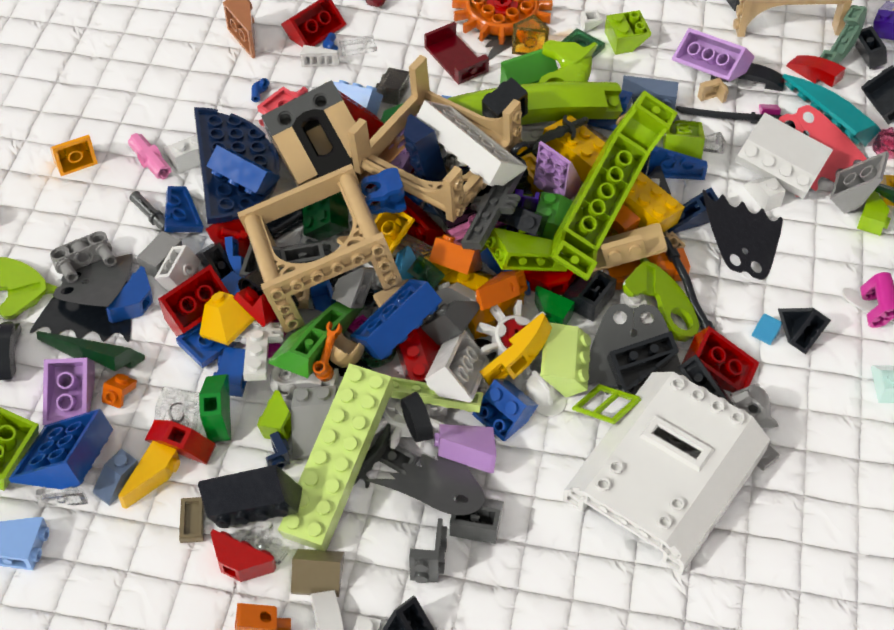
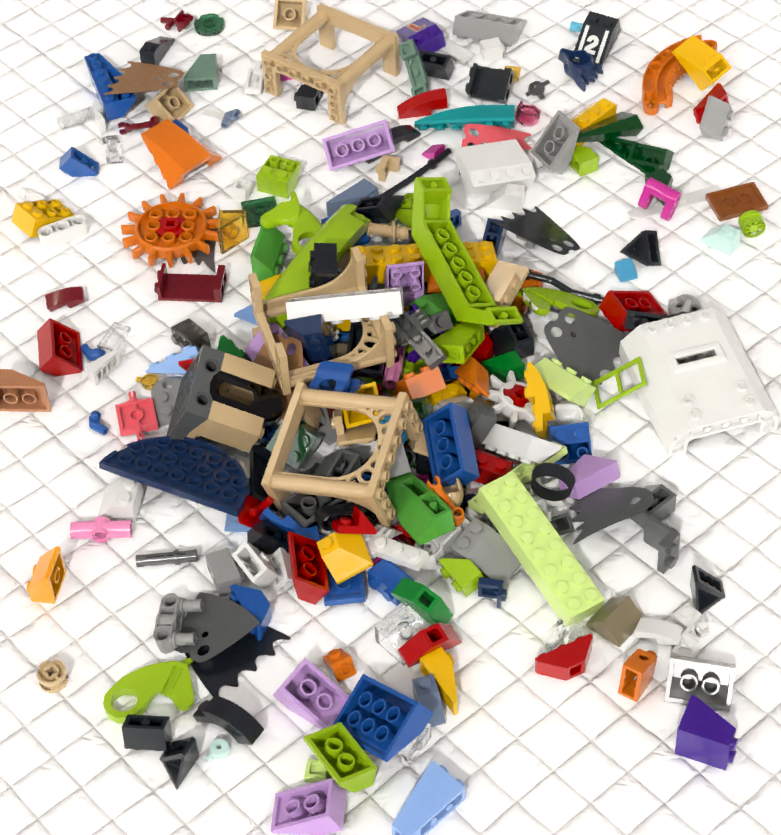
camera: 50 degrees left, 5 degrees down
(106, 354) = (307, 647): dark green wedge -> none
(181, 211) = (188, 536): blue wing -> none
(191, 520) = (505, 675): dark tan tile -> none
(241, 171) = (209, 464): blue slope -> none
(250, 496) = (534, 615): black slope -> none
(561, 130) = (369, 251): pearl dark grey piece -> none
(637, 361) = (603, 343): black wedge -> none

